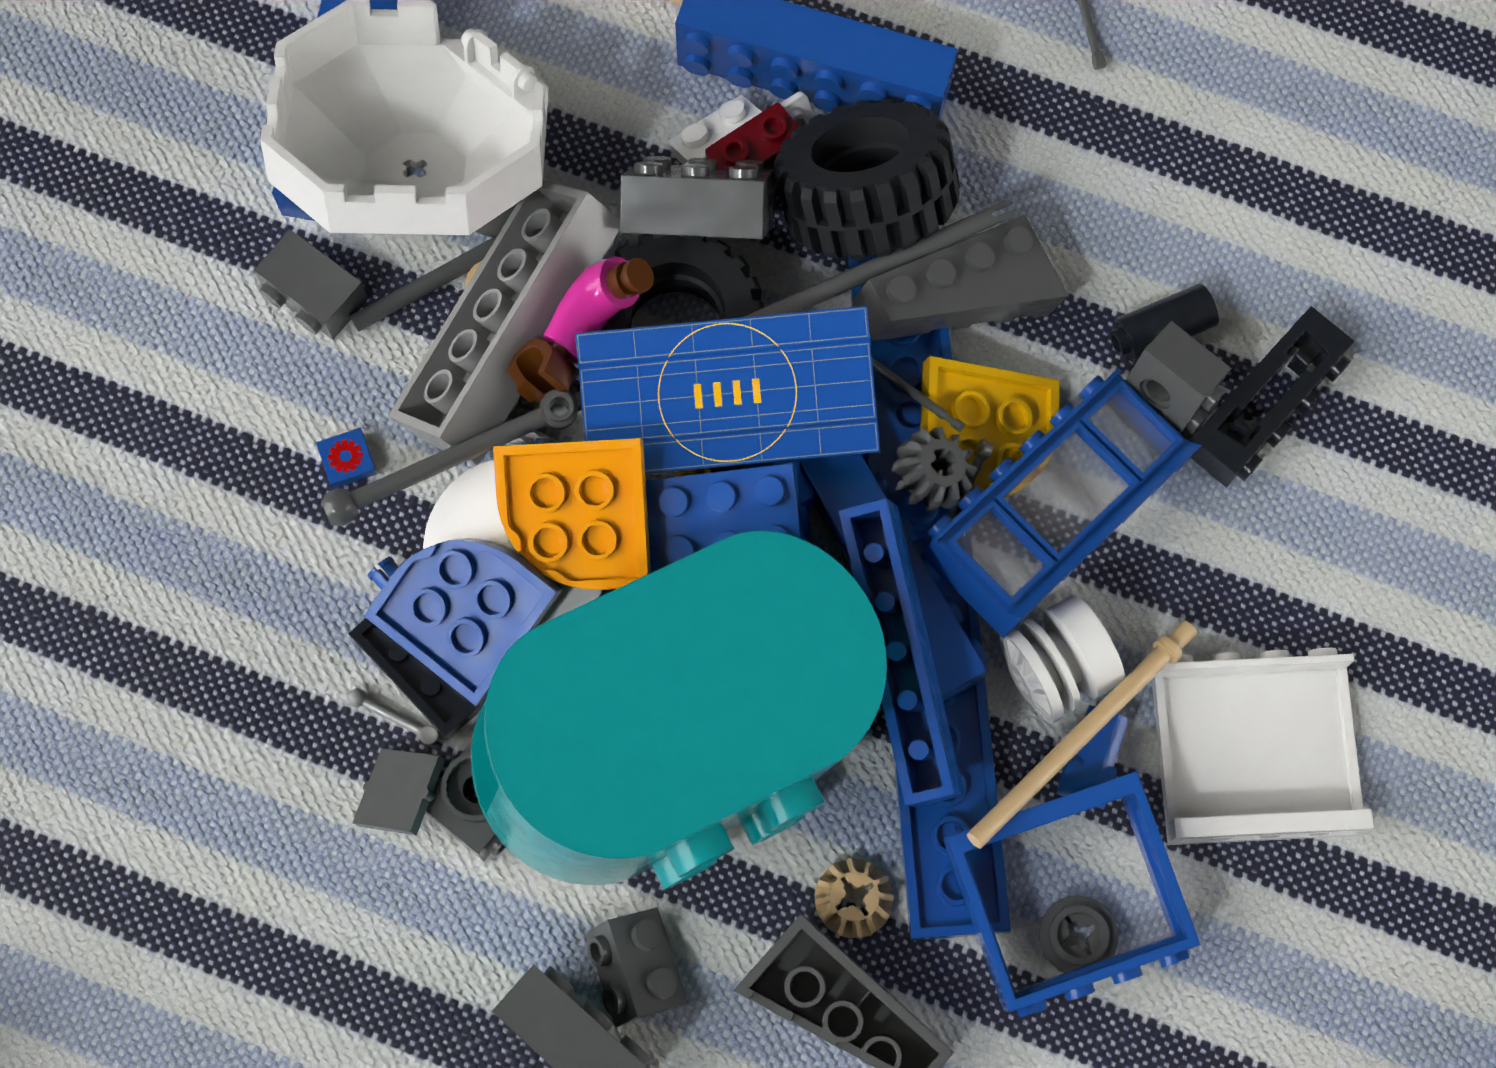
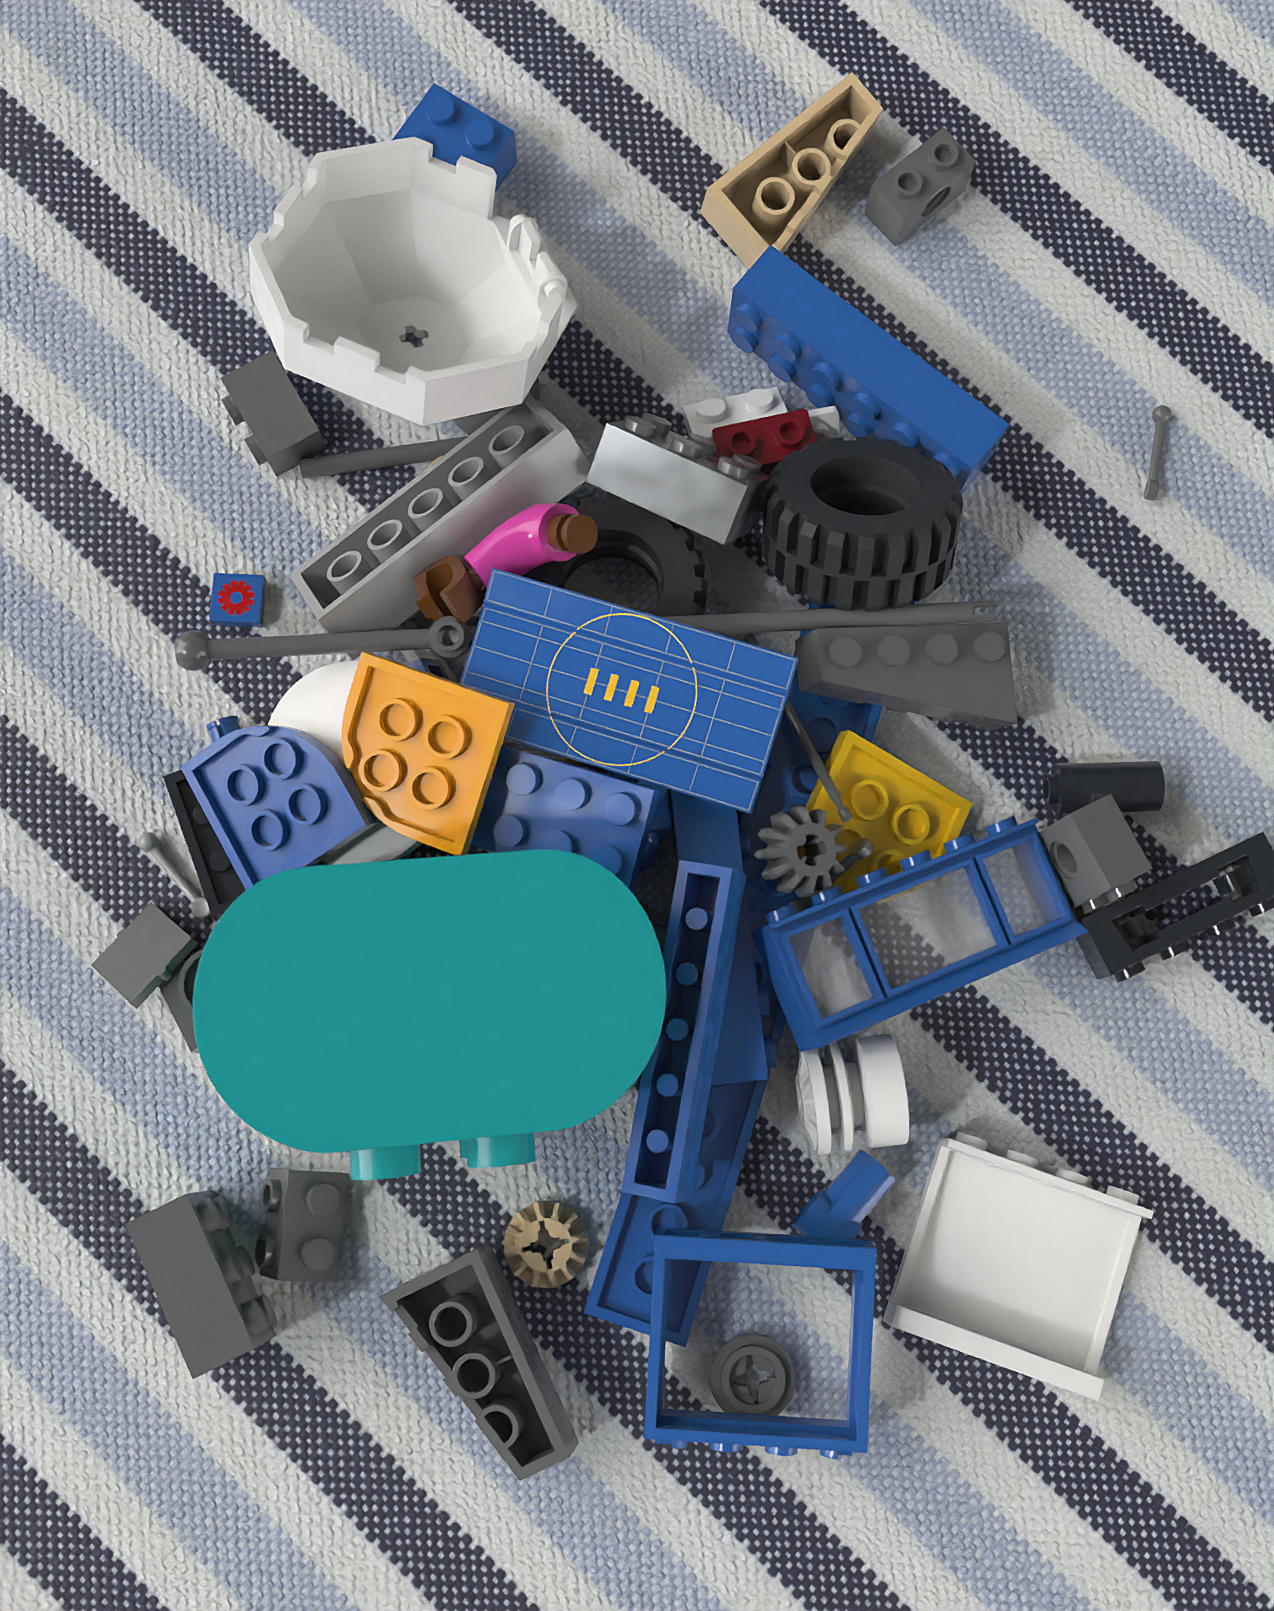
camera: 20 degrees right, 5 degrees up
(1166, 650) = (961, 1130): tan bar -> none

